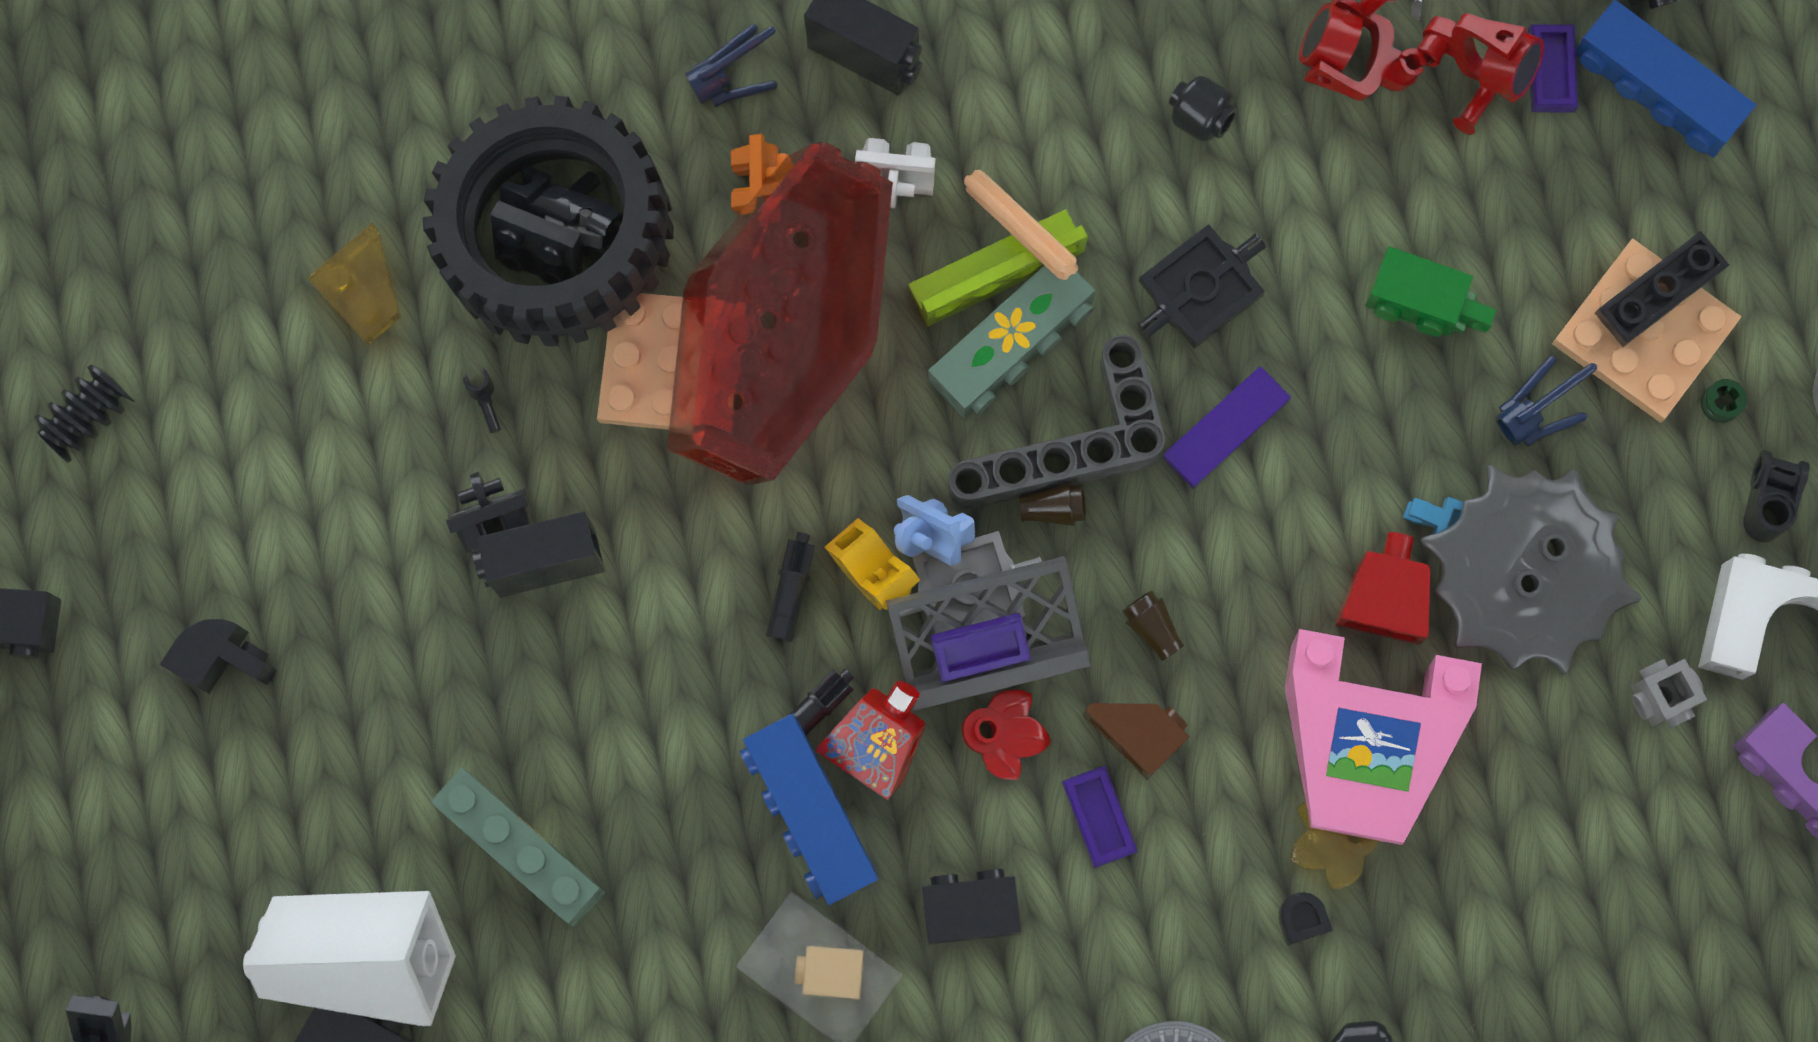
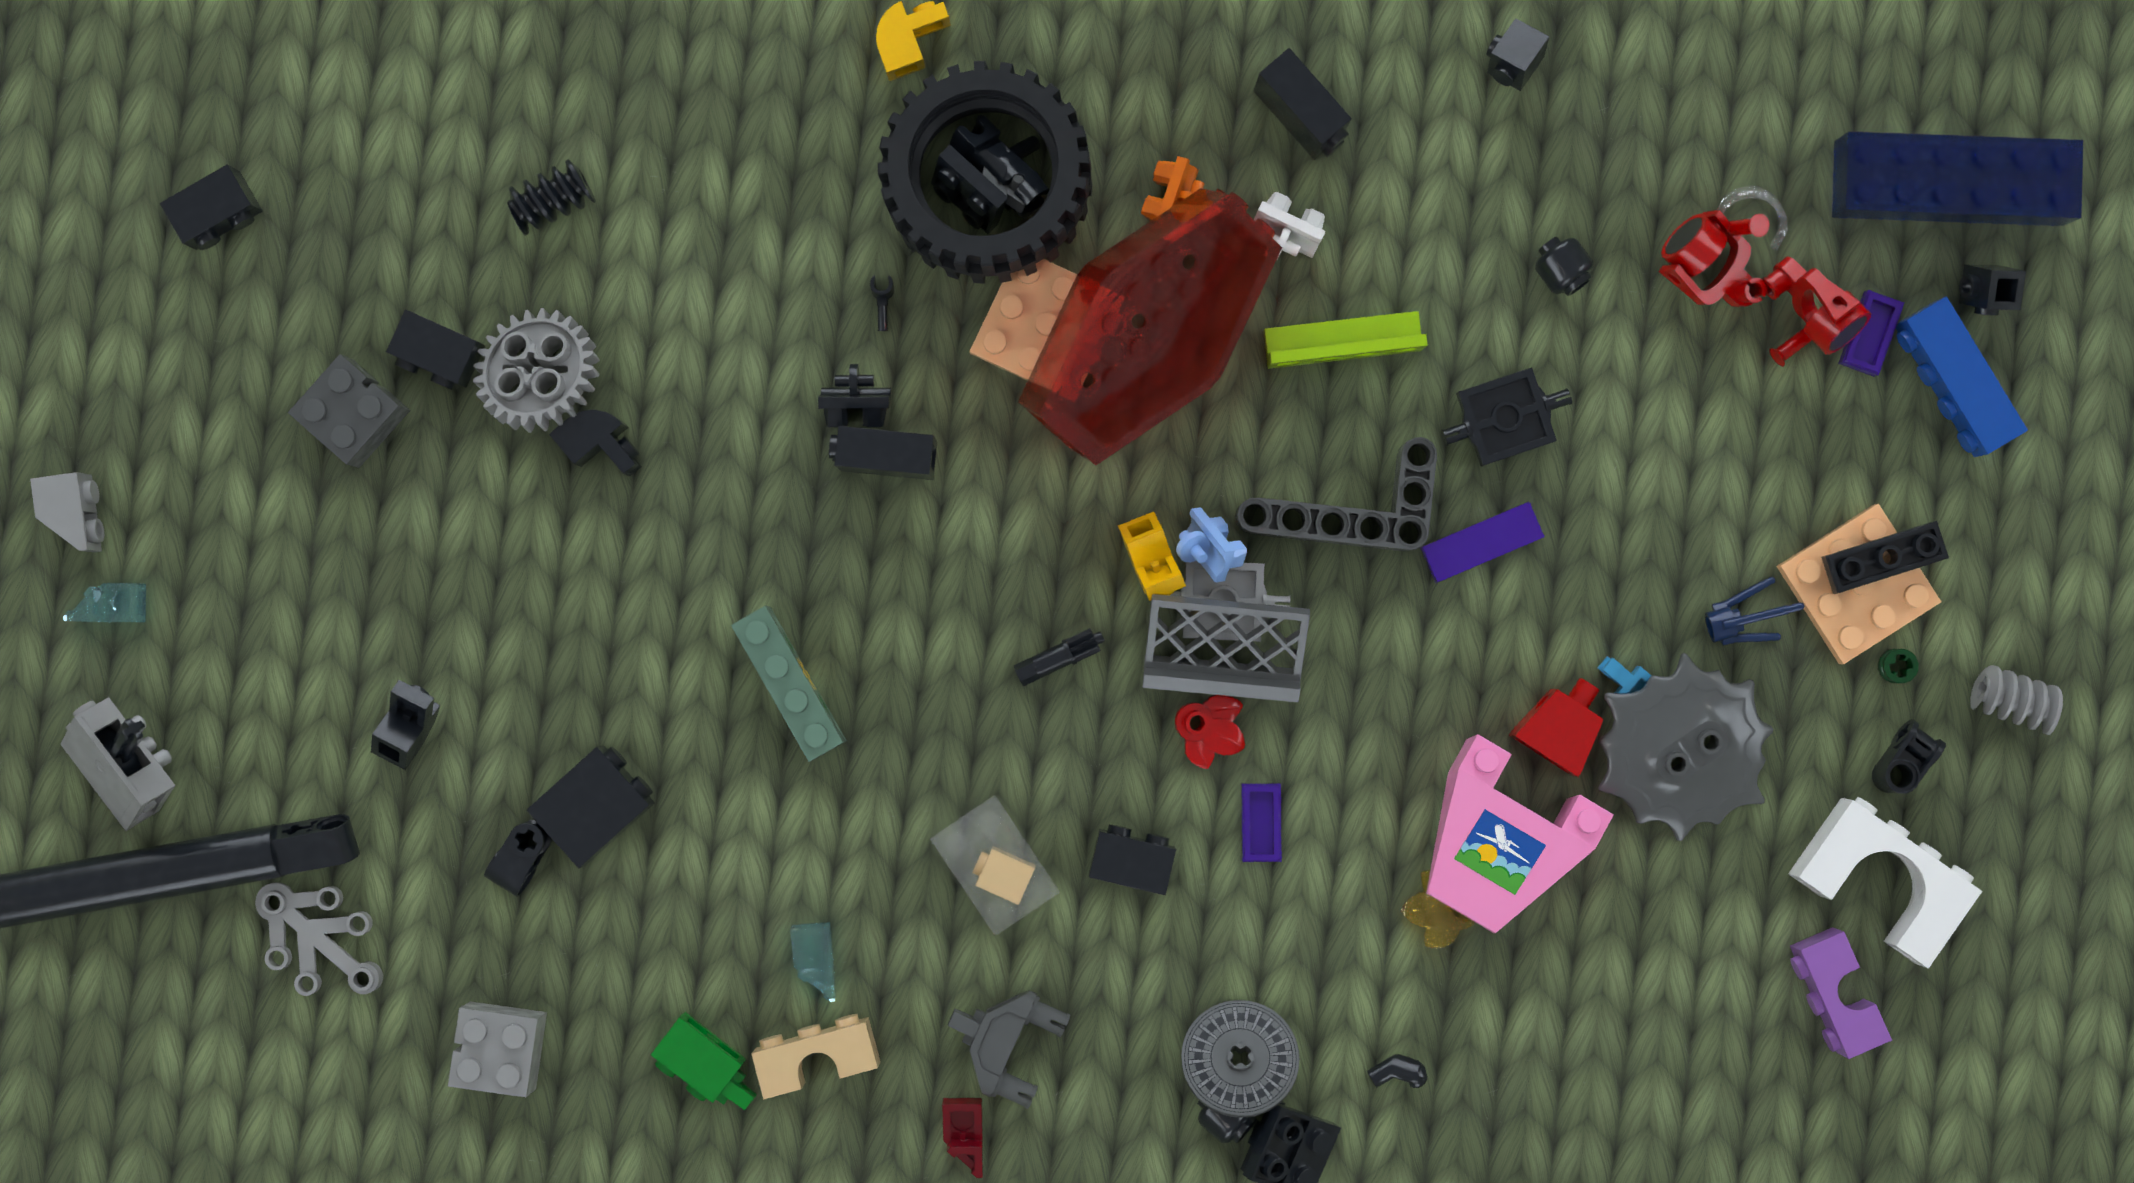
camera: 15 degrees right, 10 degrees up
(124, 602) = (536, 370): none -> light grey gear
(353, 954) = (630, 725): white slope -> none
(360, 285) = (811, 167): clear yellow wing -> none
(409, 114) = (898, 35): none -> yellow brick
(709, 78) = (1162, 88): dark blue plant -> none
(791, 588) = (1079, 549): black piece -> none
(810, 809) = (1032, 736): blue brick -> none
(877, 739) = (1105, 699): red torso -> none
(980, 647) = (1215, 657): dark purple tile -> none
(1009, 339) = (1333, 404): sand green brick -> none
(1021, 225) = (1375, 315): light nougat axle -> none
(1055, 505) = (1317, 557): dark brown cone -> none
(1139, 732) = (1319, 769): reddish brown slope -> none
(1153, 624) = (1362, 684): dark brown cone -> none
(1303, 918) = (1393, 960): black tile -> none
(1426, 295) = (1688, 491): green hinge -> none
(1679, 683) = (1766, 894): light grey brick -> none

